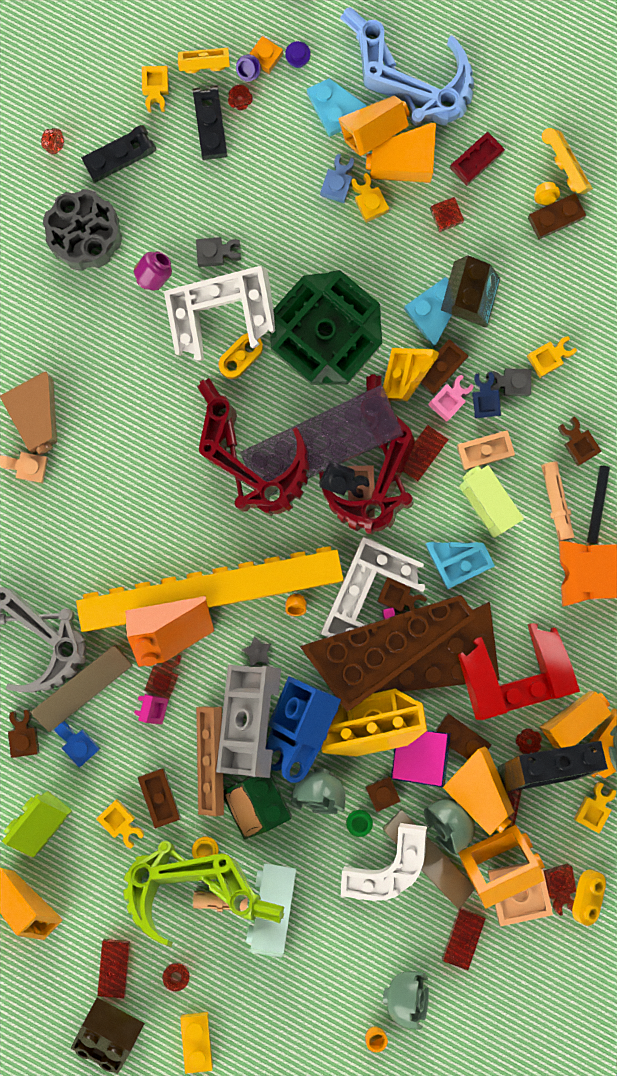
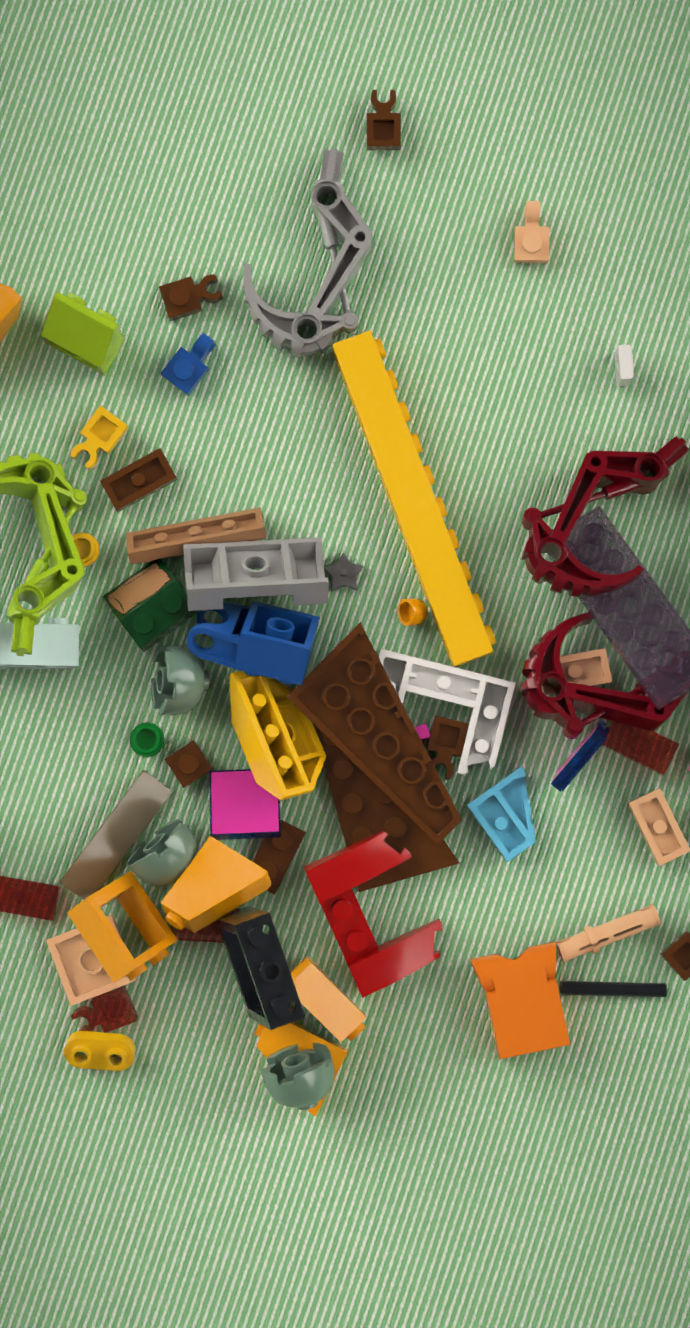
camera: 85 degrees right, 0 degrees up
(33, 412) = (603, 234): medium nougat slope -> none
(81, 688) = (260, 359): dark tan slope -> none
(137, 414) = (624, 365): none -> white tile
(152, 709) = (248, 451): dark pink tile -> none
(163, 679) = (288, 458): clear red plate -> none
(167, 629) = (353, 451): orange slope -> none
(211, 901) = (20, 567): light nougat pin -> none
(341, 478) = (586, 640): black plate -> none
(392, 879) = (86, 795): white plate -> none
(427, 498) = (580, 755): none -> clear blue tile
(490, 500) = (592, 840): yellowish green window -> none
(521, 741) = (296, 941): clear red plate -> none
(593, 811) = (209, 1041): yellow plate -> none

